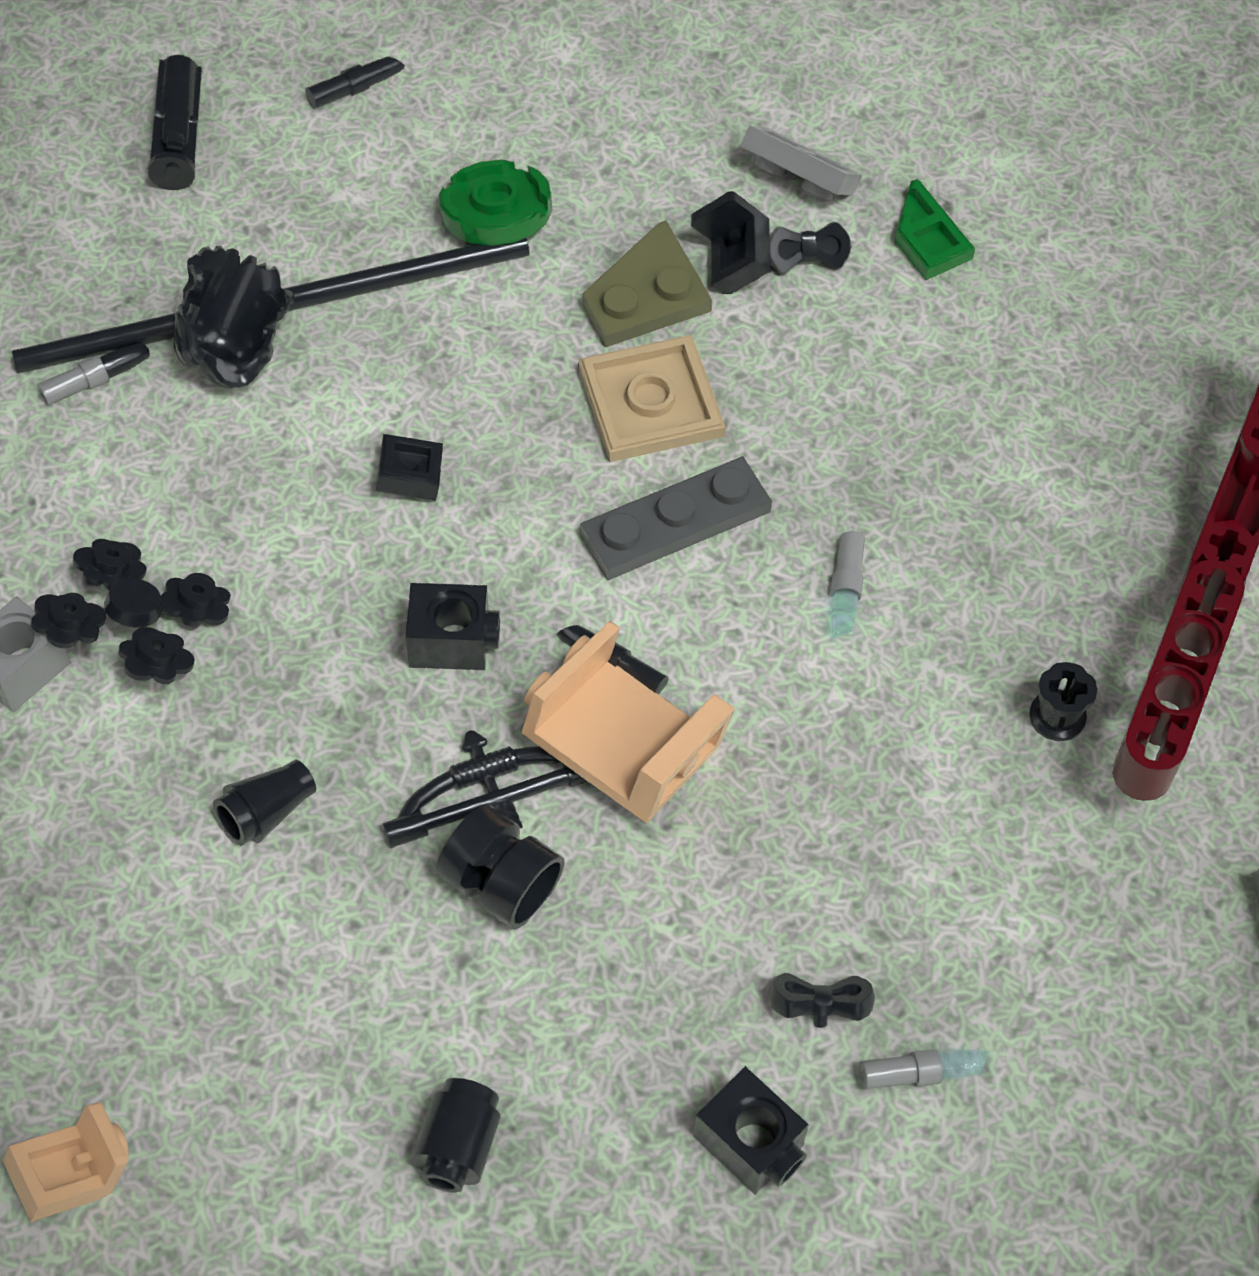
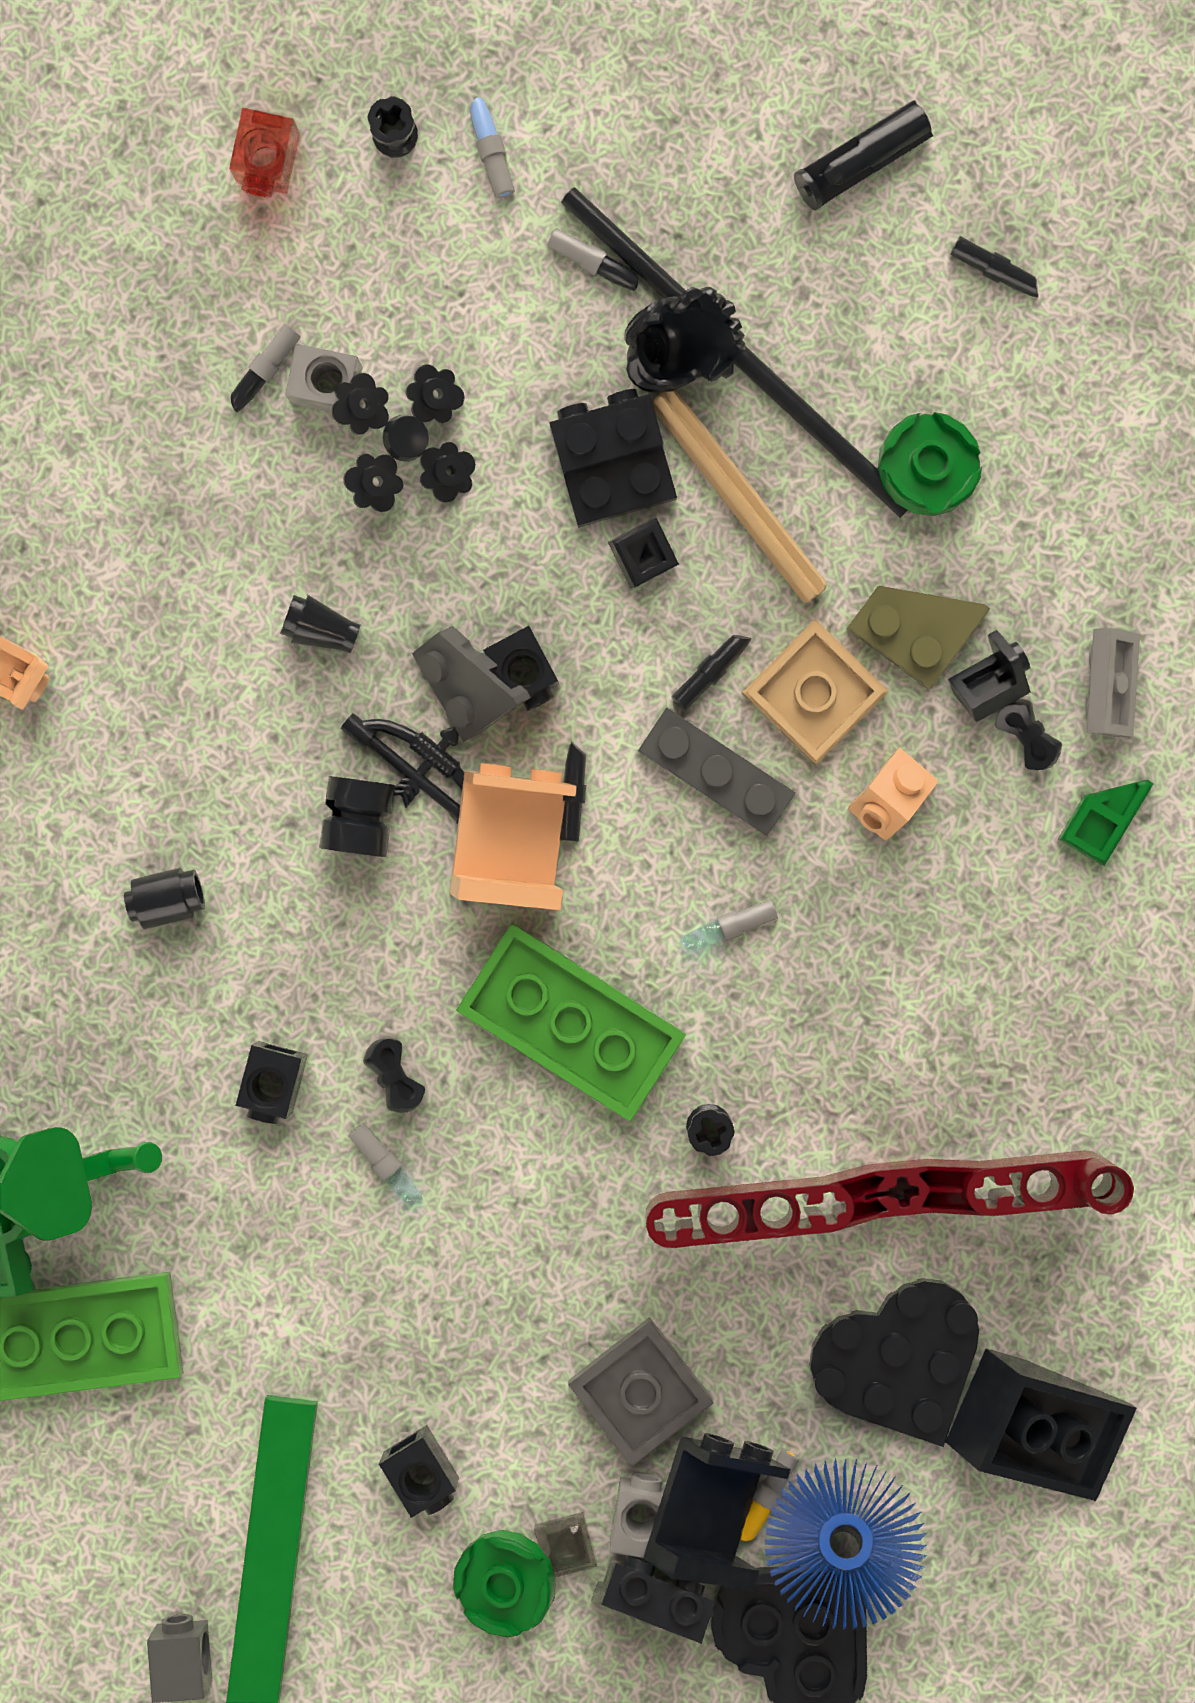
camera: 65 degrees right, 30 degrees up
(293, 446) = (612, 457): none -> black plate
(411, 363) = (739, 495): none -> tan axle
(431, 680) = (466, 683): none -> dark grey wing
(569, 475) = (710, 671): none -> black piece
(802, 379) = (893, 795): none -> light nougat bracket
(863, 781) = (571, 1022): none -> bright green plate

